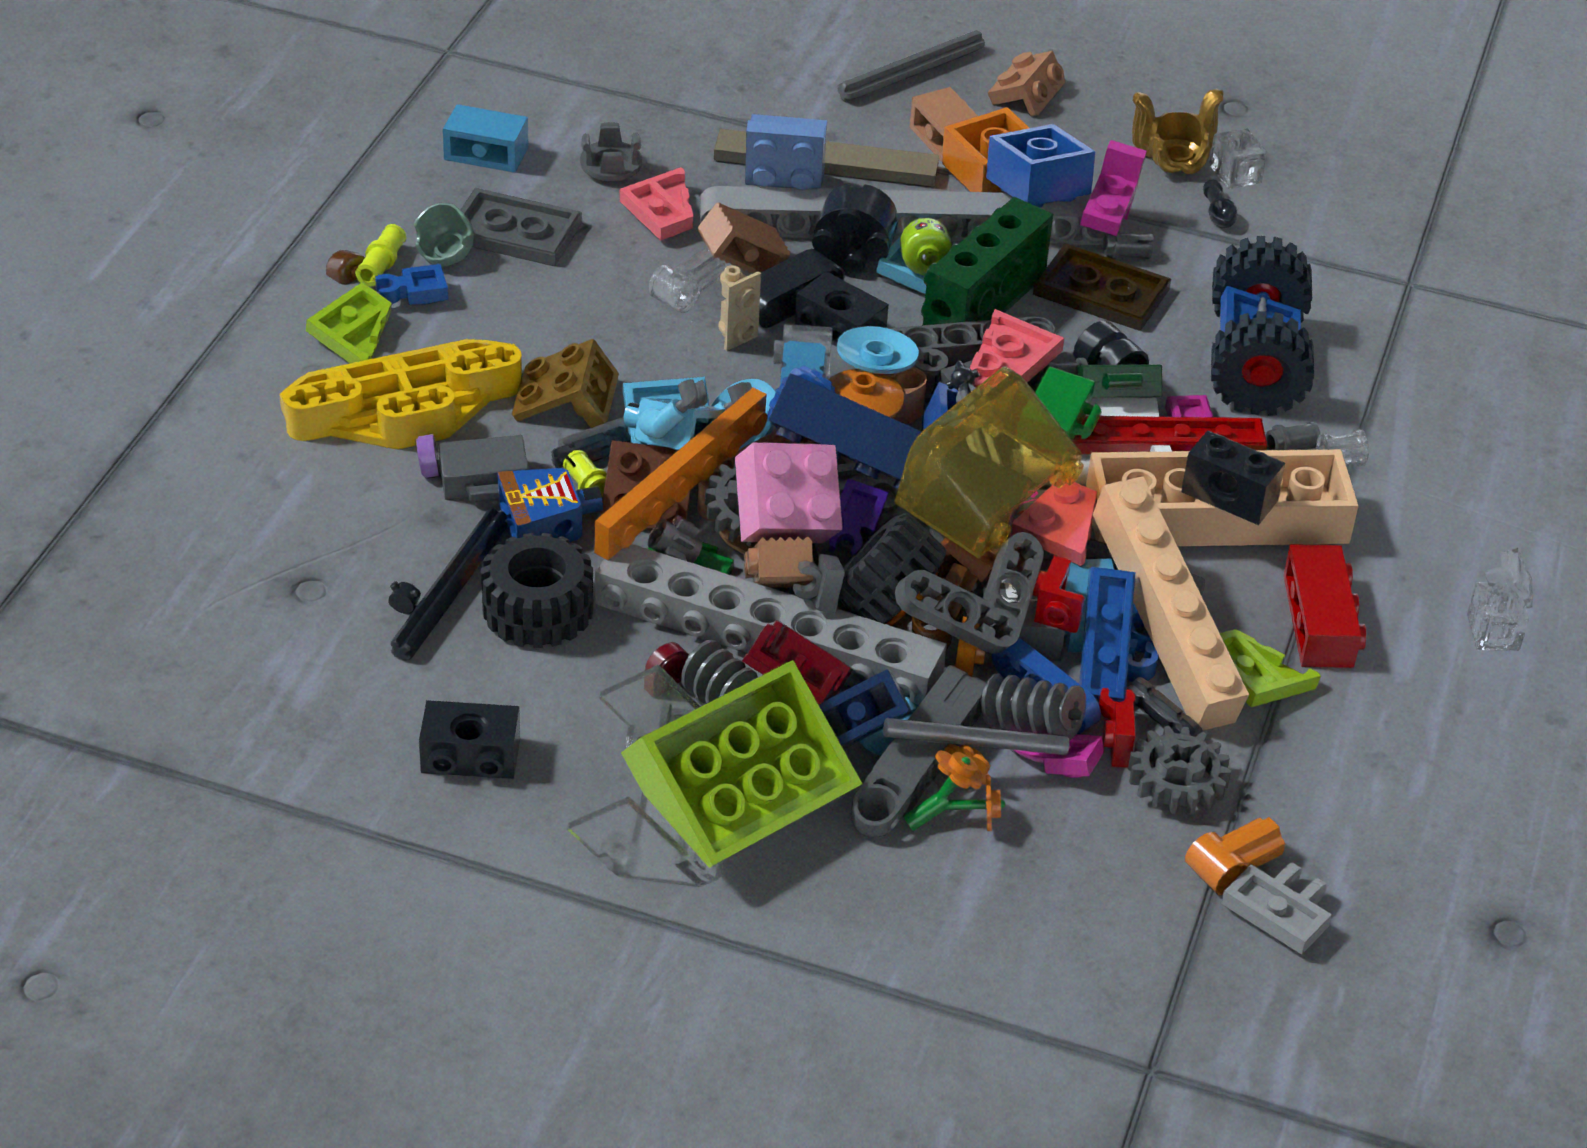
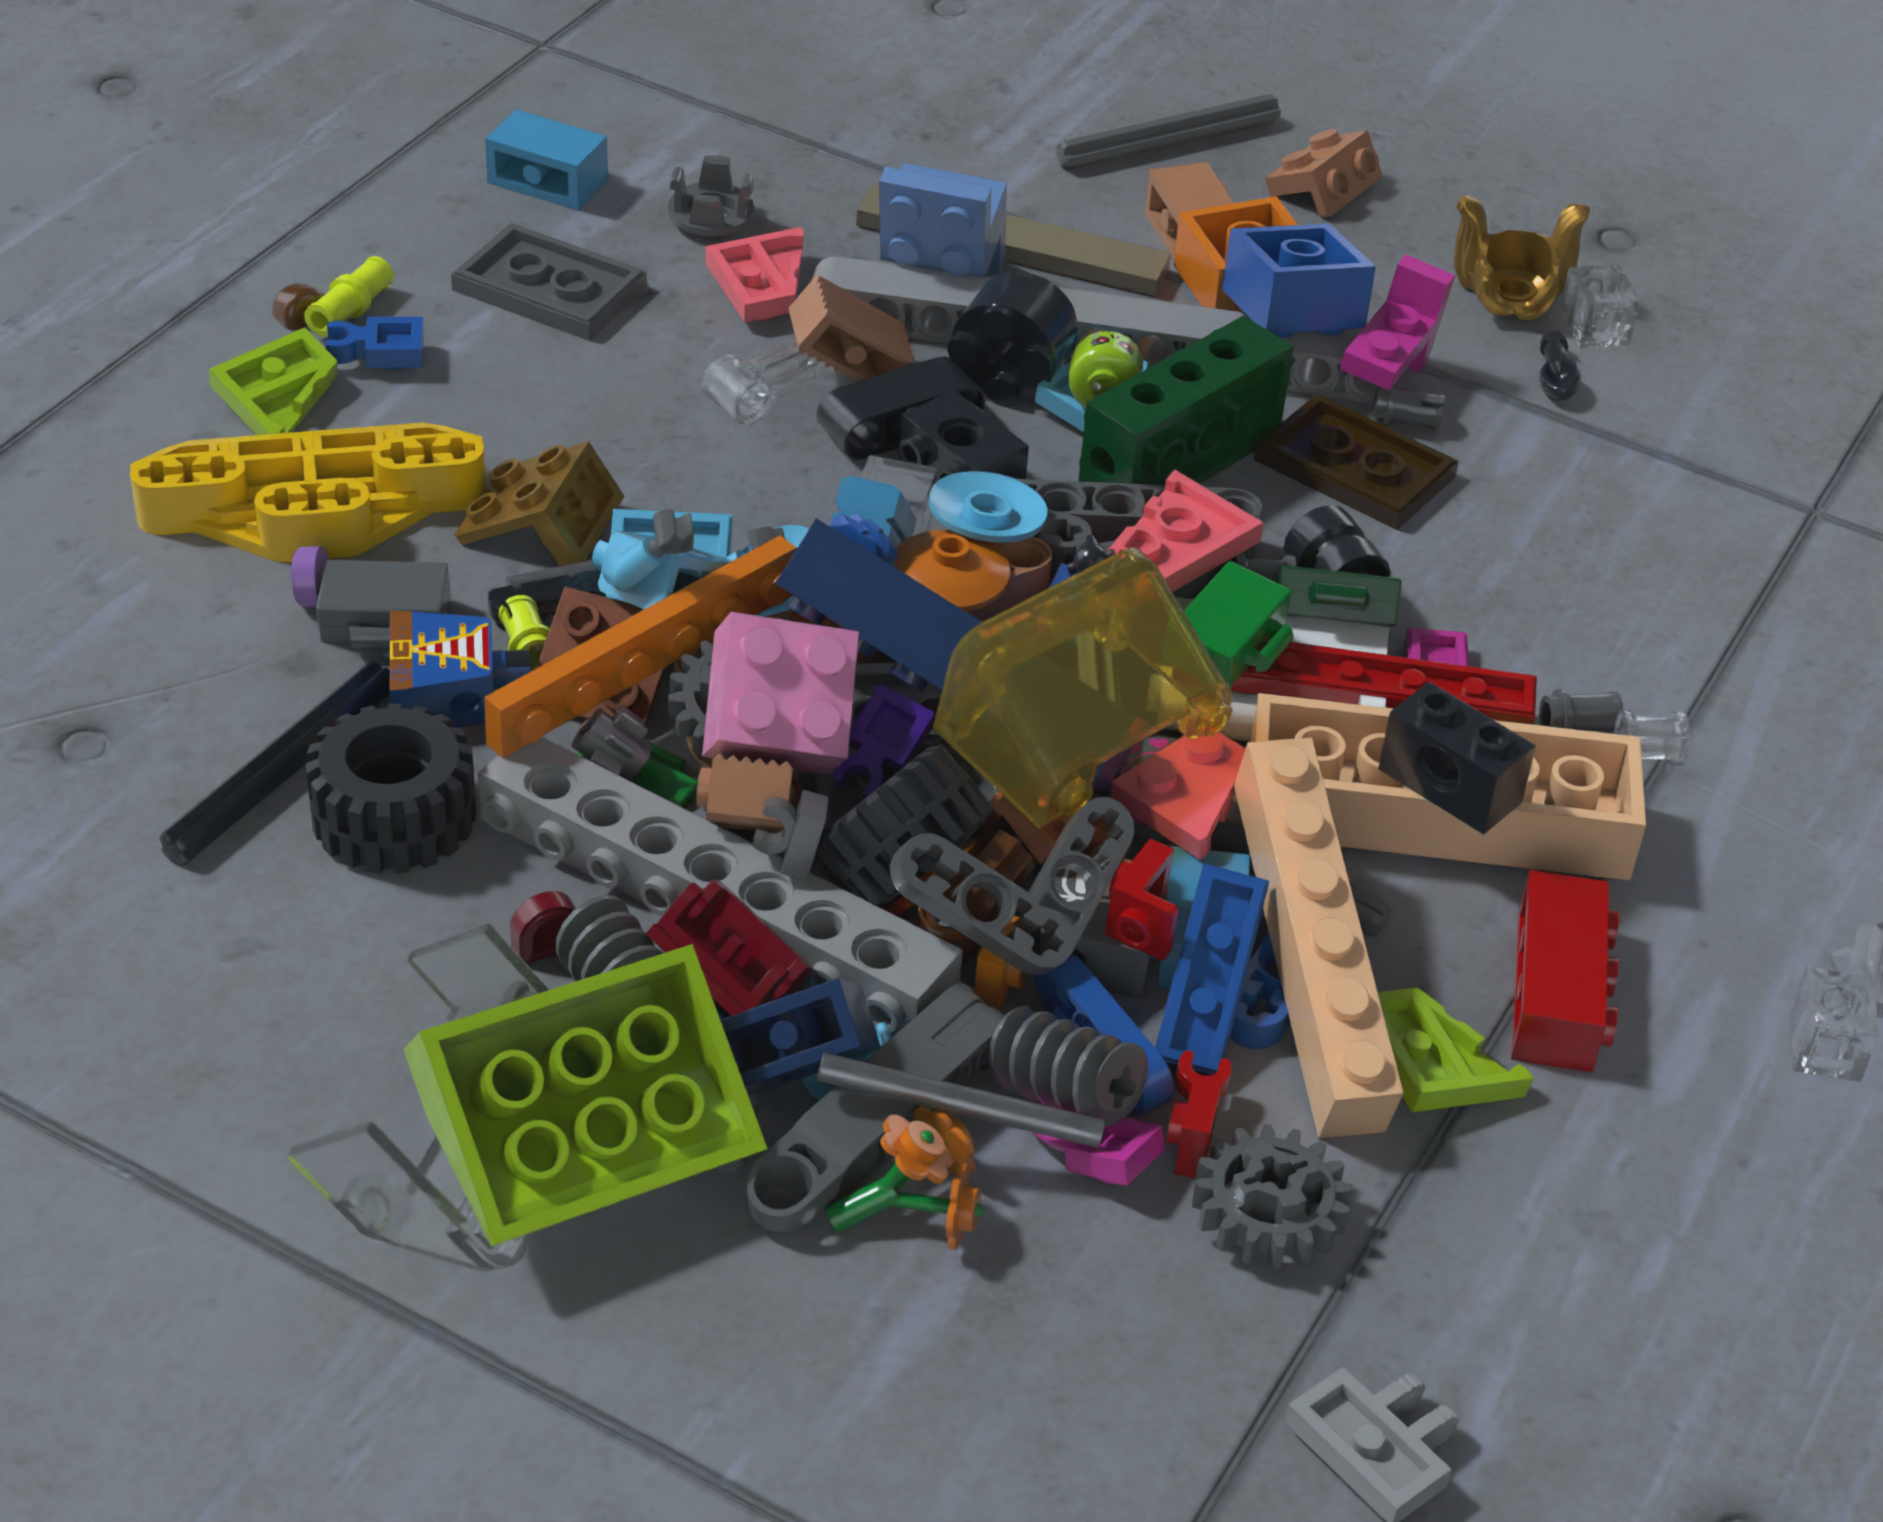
camera: 10 degrees right, 0 degrees up
(404, 597) = (204, 771): black piece -> none
(443, 234) = (440, 278): sand green hair -> none
(469, 739) = (217, 995): black brick -> none
(740, 308) = (814, 423): tan hinge -> none
(1162, 708) = (1273, 1095): black axle -> none
(1225, 858) = (1303, 1349): orange piece -> none
(1261, 350) = (1560, 574): black plate -> none

